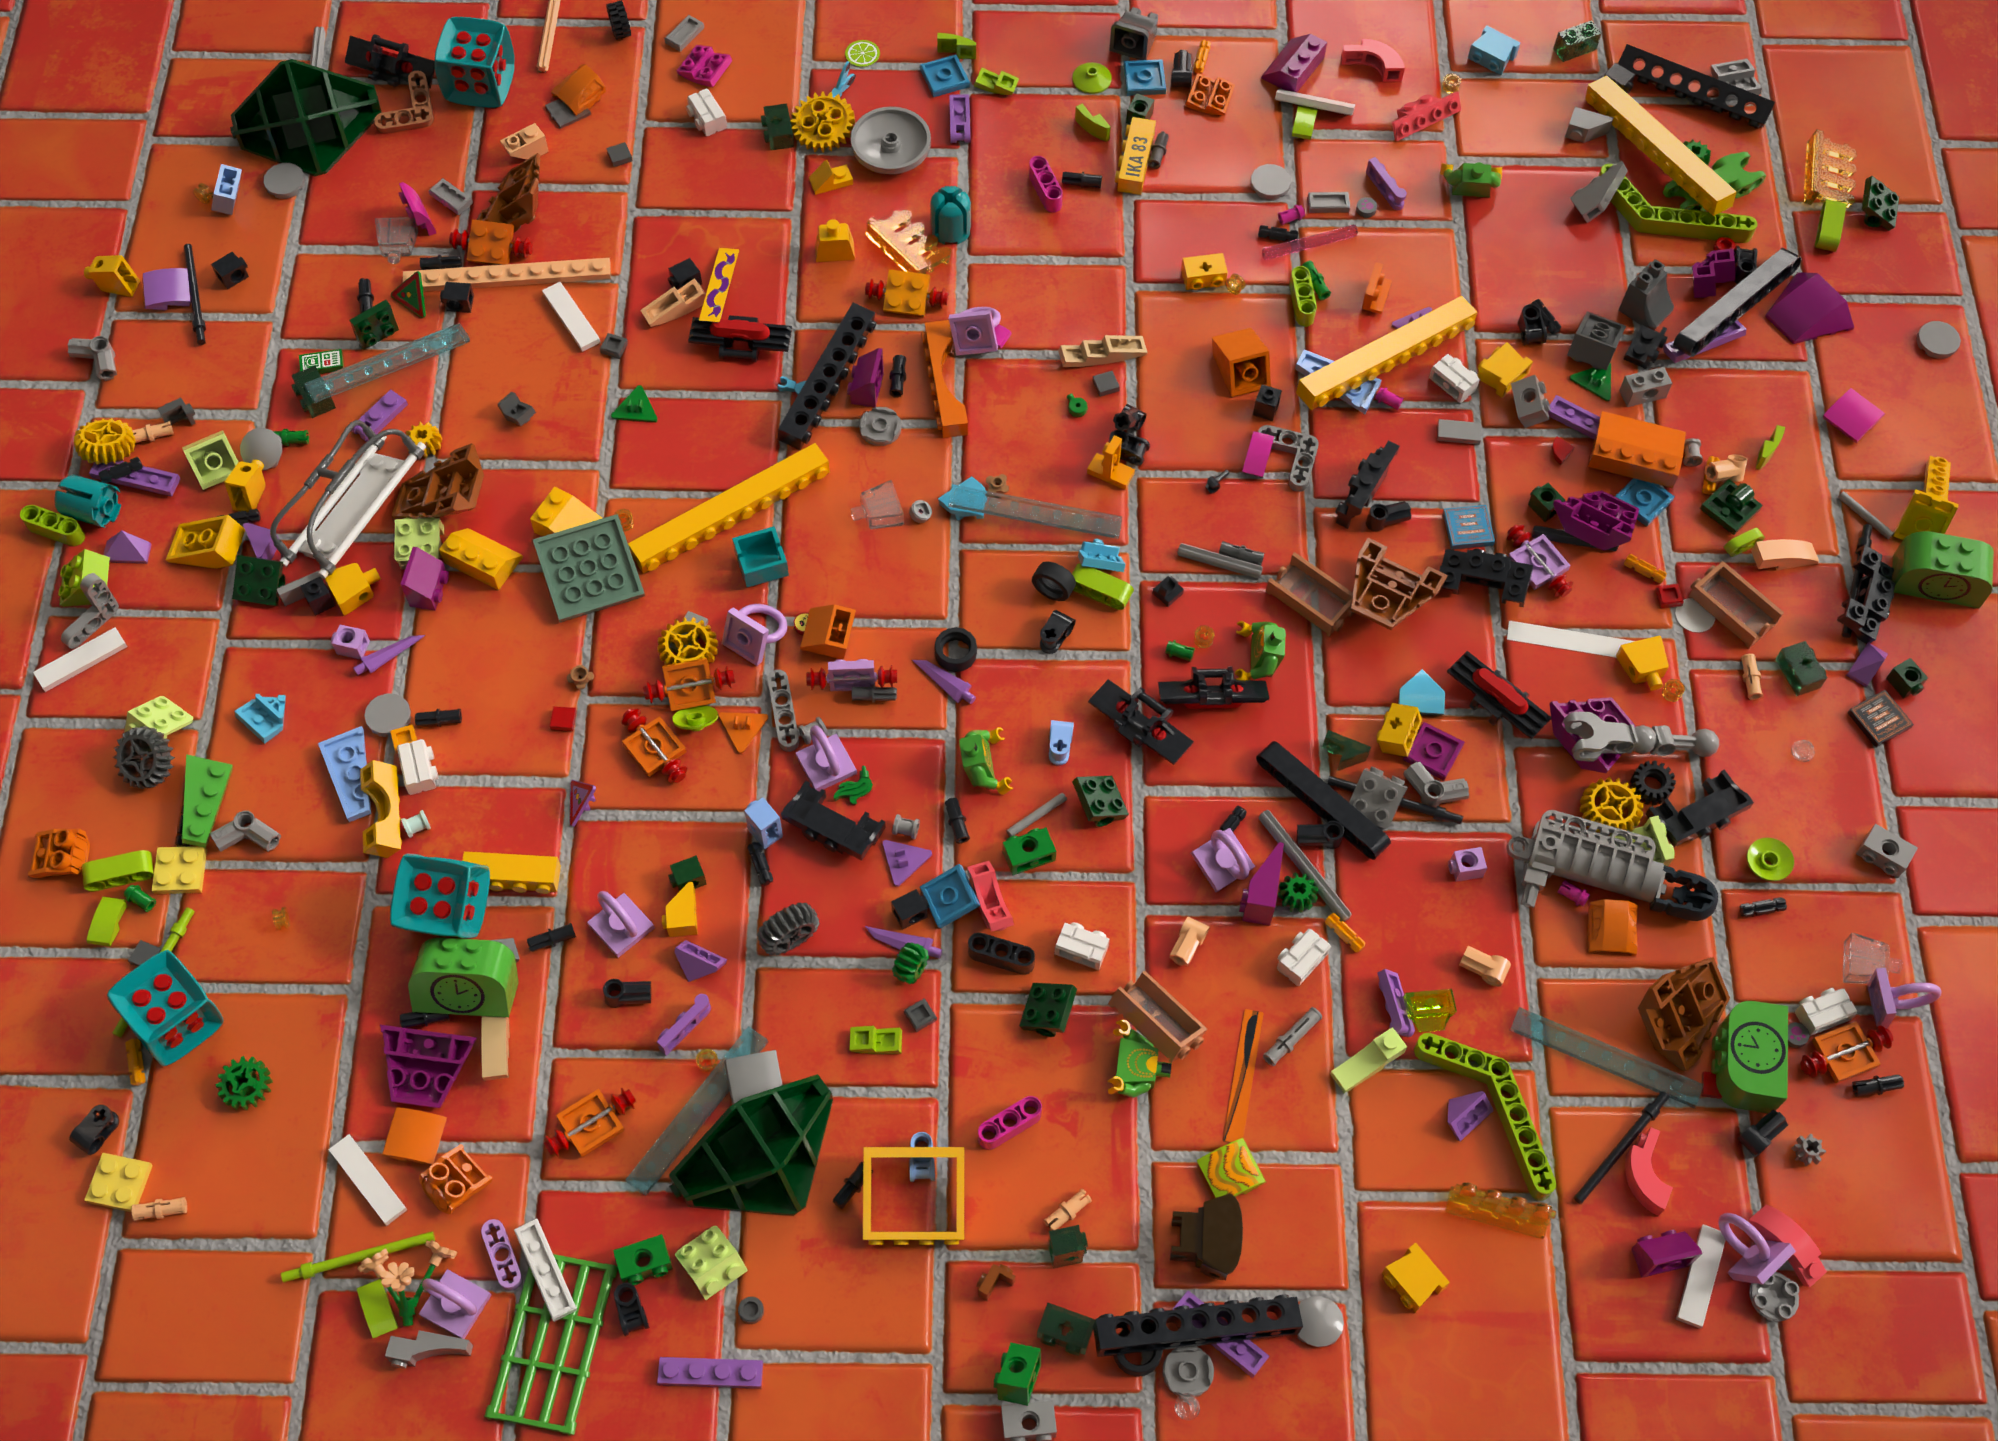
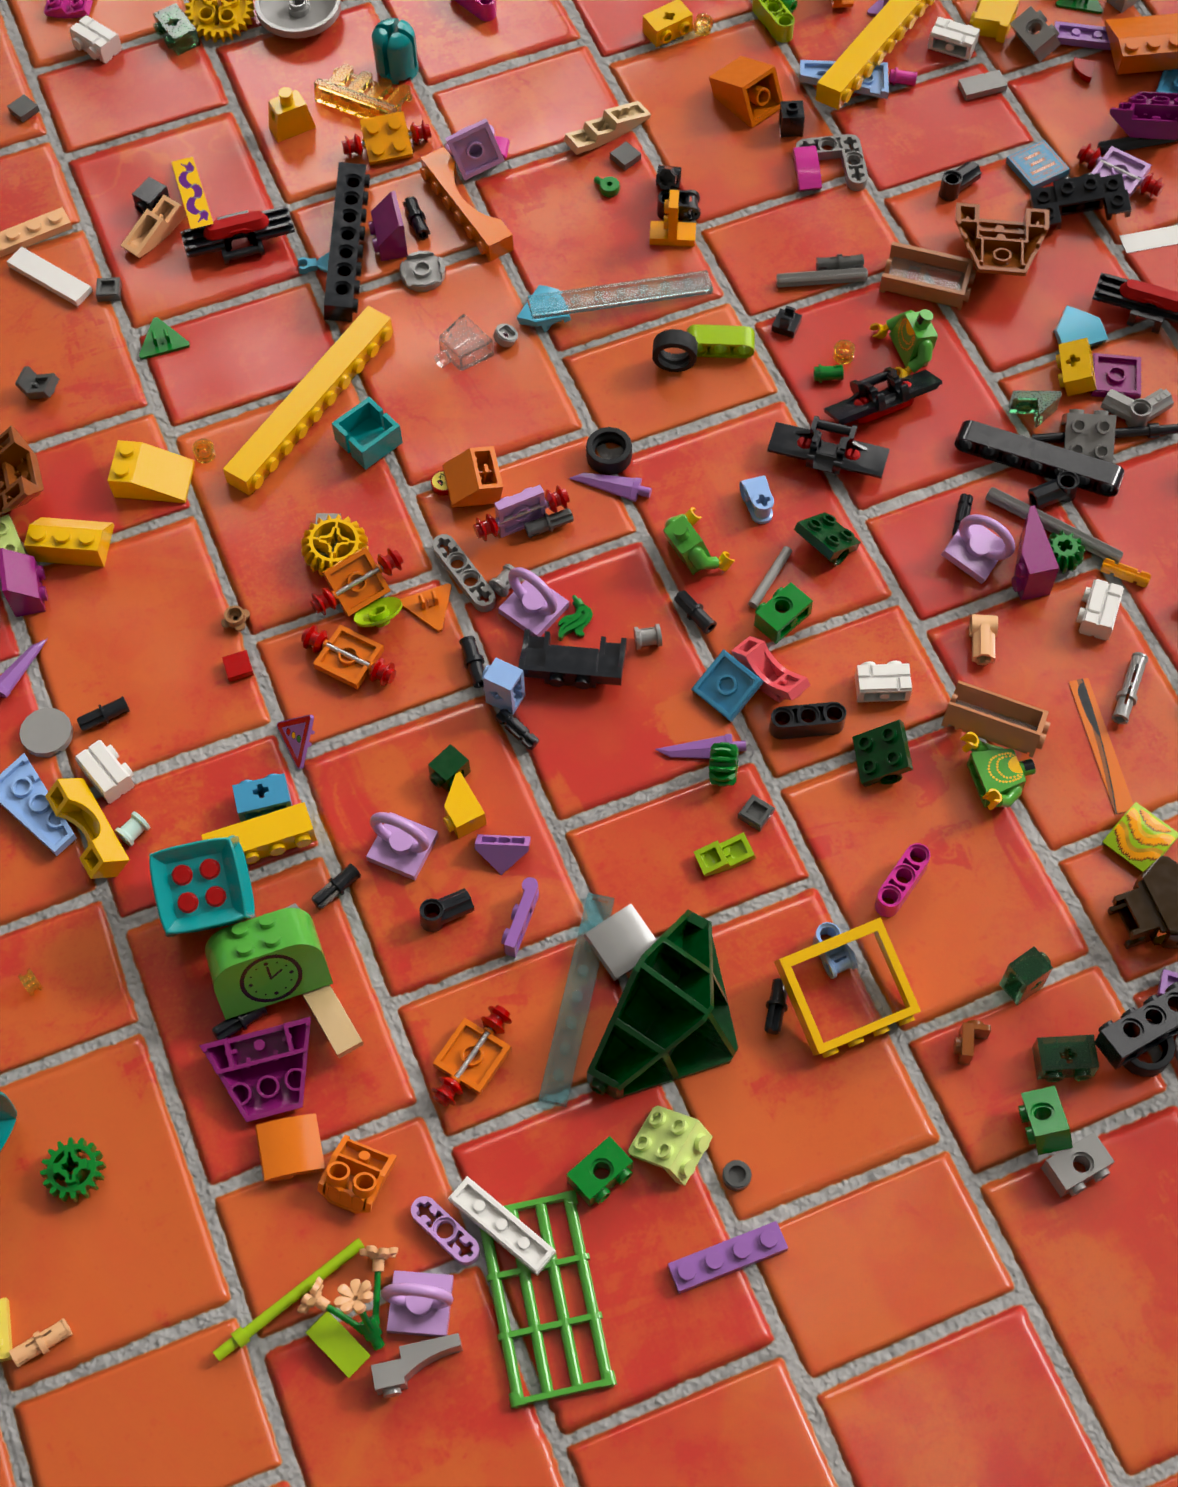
camera: 20 degrees left, 0 degrees up
(368, 1179) = (259, 1214): white tile -> none
(403, 735) = (74, 746): light orange plate -> none
(528, 838) = (249, 793): none -> dark azure brick
(588, 568) = (192, 507): sand green plate -> none
(631, 1313) = (614, 1229): black piece -> none
(699, 1059) = (570, 944): clear yellow bush -> none
(749, 637) = (394, 512): lavender tile -> none
(753, 788) = (473, 660): none -> black pin
(788, 928) = (583, 779): dark grey gear -> none
(828, 179) = (252, 60): slope -> none
(904, 860) = (660, 670): medium lavender piece -> none
(910, 908) = (693, 713): black brick -> none
(1001, 480) = (568, 282): medium nougat plate -> none
(1055, 631) = (698, 399): black piece -> none
(1067, 1210) = (1003, 942): light nougat pin -> none
(1101, 556) = (707, 312): medium azure slope -> none
(1213, 483) = (778, 209): black hand -> none
(1366, 483) = (927, 156): black bracket -> none
(1544, 509) = (1096, 117): dark green brick -> none

